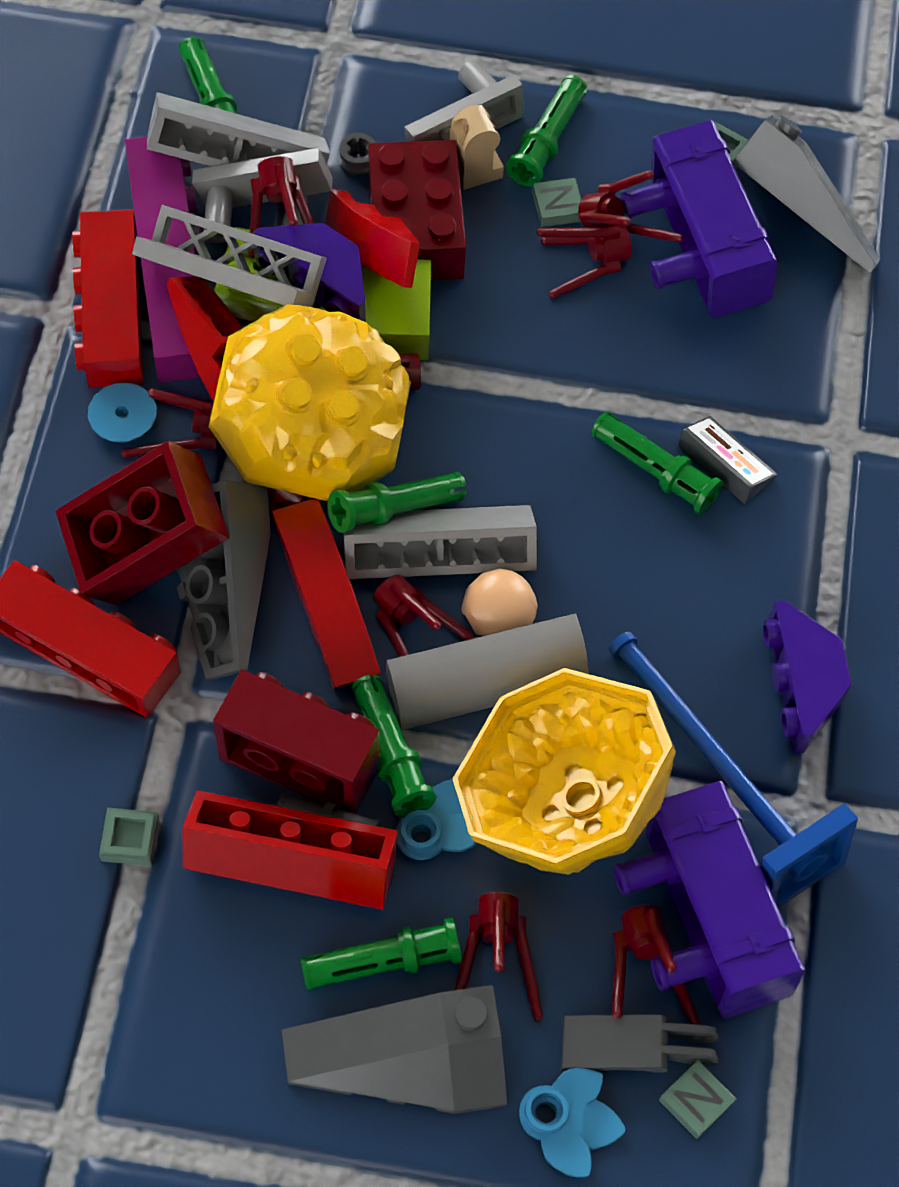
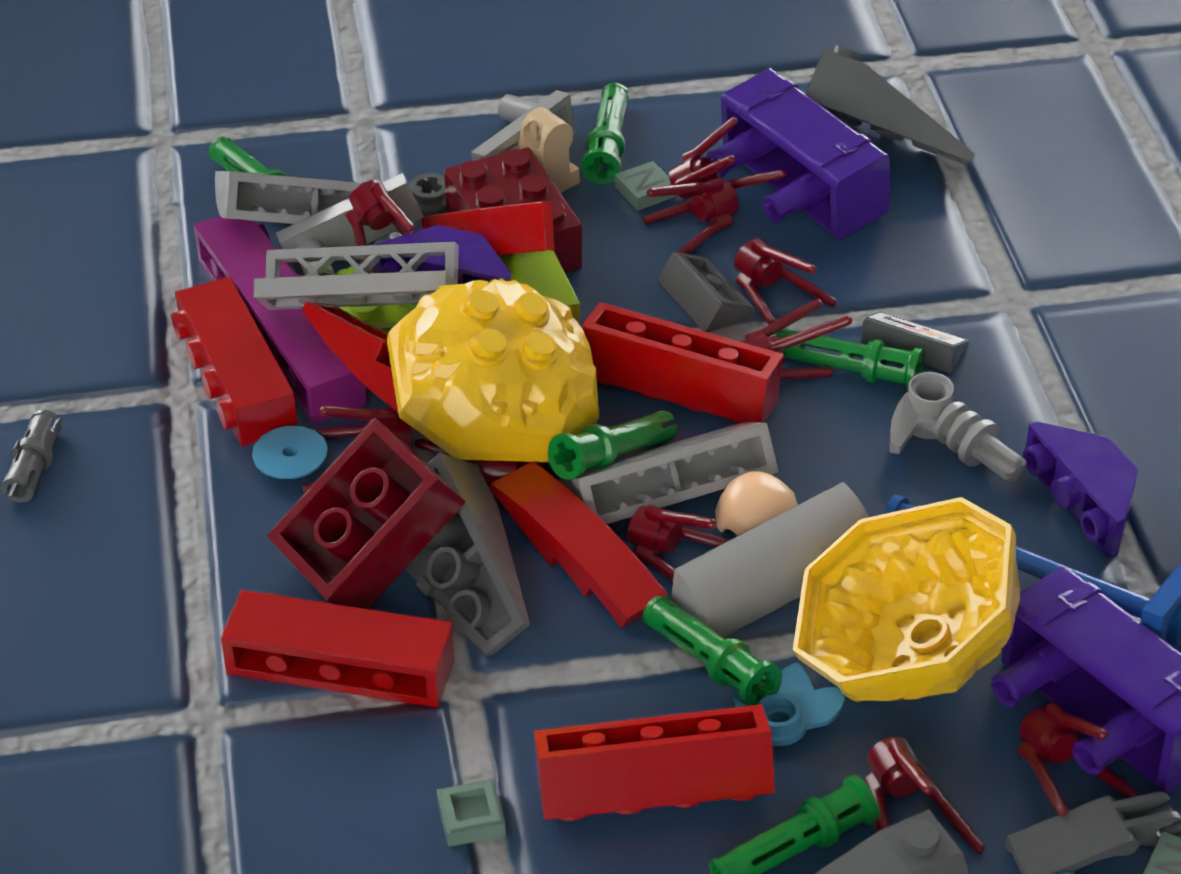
camera: 15 degrees left, 20 degrees down
(297, 741) = (615, 661): dark red brick -> none
(493, 430) = (683, 364): none -> red brick
(560, 343) = (703, 292): none -> dark grey slope
(576, 440) = (763, 340): none -> dark red plant
(623, 335) = (762, 267): none -> dark red plant
(712, 568) = (930, 414): none -> light grey piece

